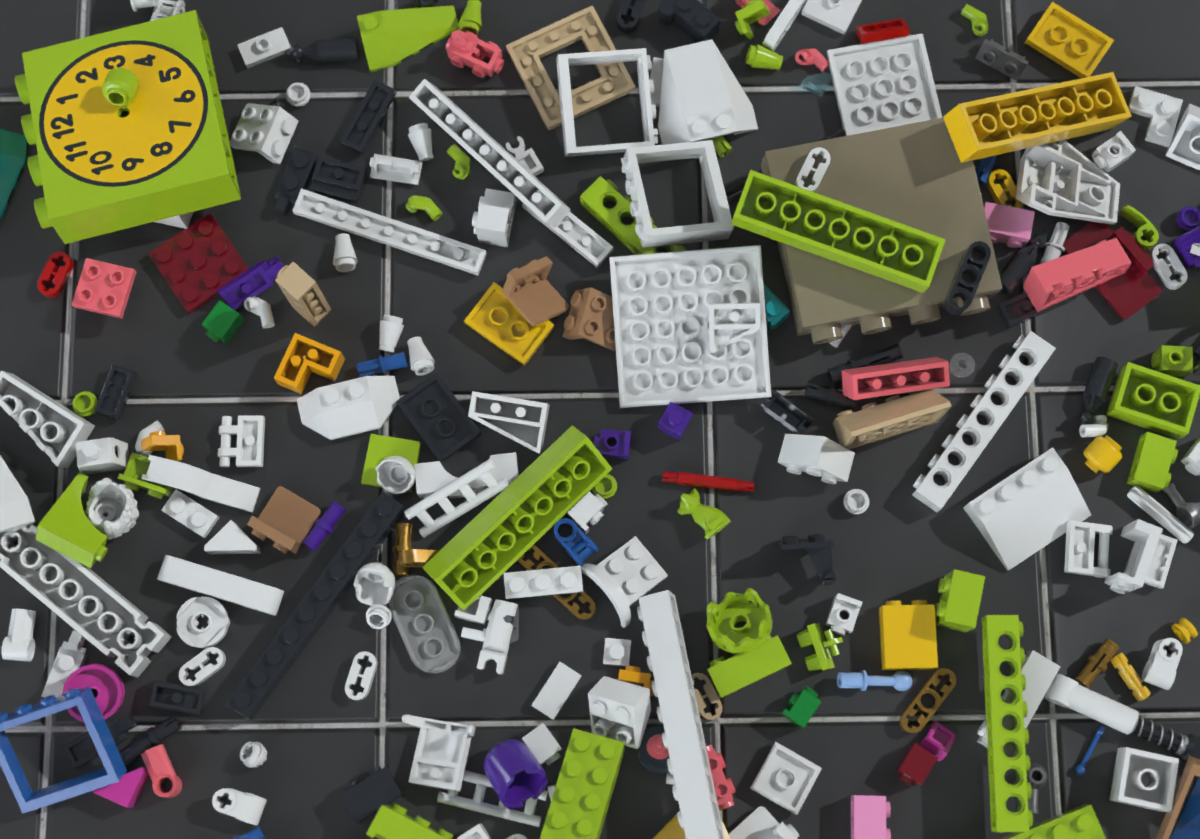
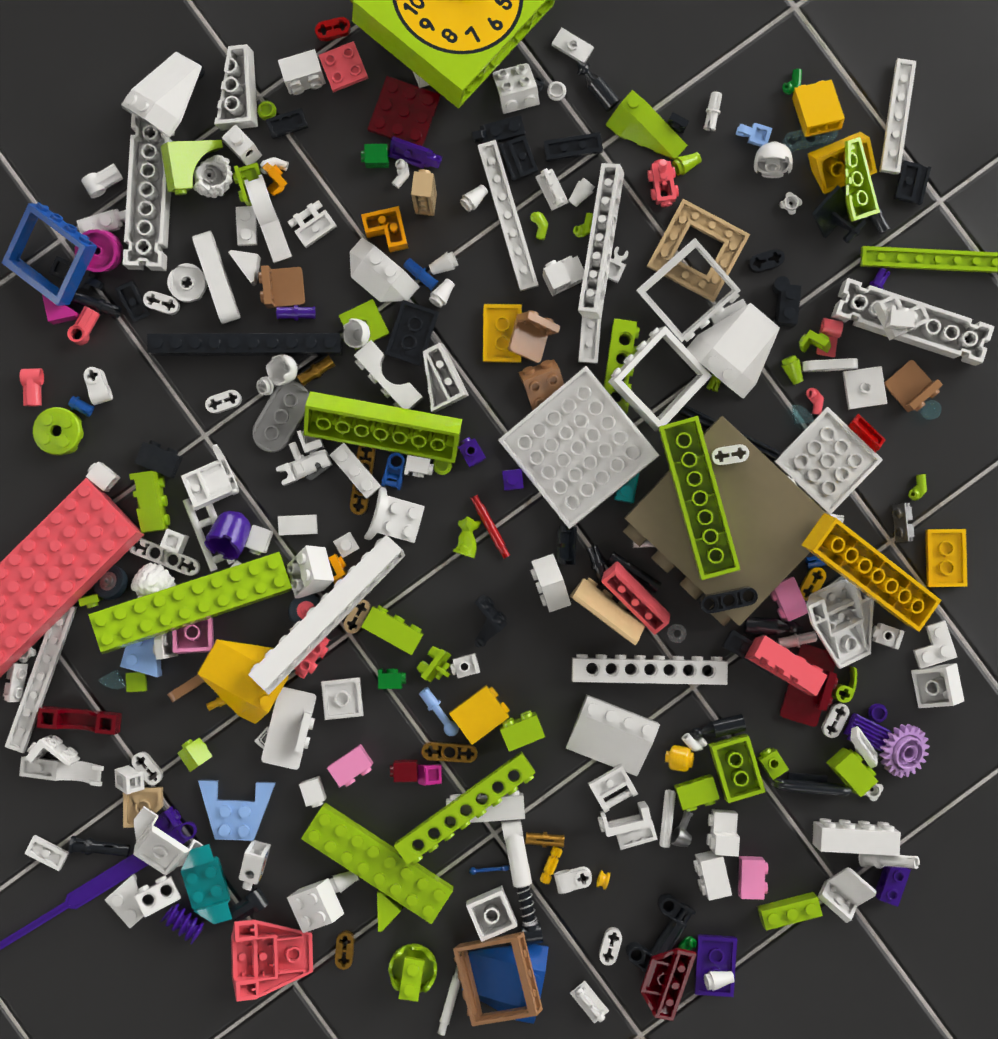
camera: 50 degrees right, 10 degrees up
(75, 335) = (302, 72): none -> white brick
(253, 754) = (131, 372): white plate -> none
(416, 557) = (314, 382): pearl gold beam -> none
(454, 512) = (377, 379): white bar -> none
(732, 322) = (596, 472): white wing -> none
(734, 609) = (414, 595): lime plate -> none
(856, 501) = (542, 626): white plate -> none
(1035, 785) = (442, 850): flat silver bar -> none

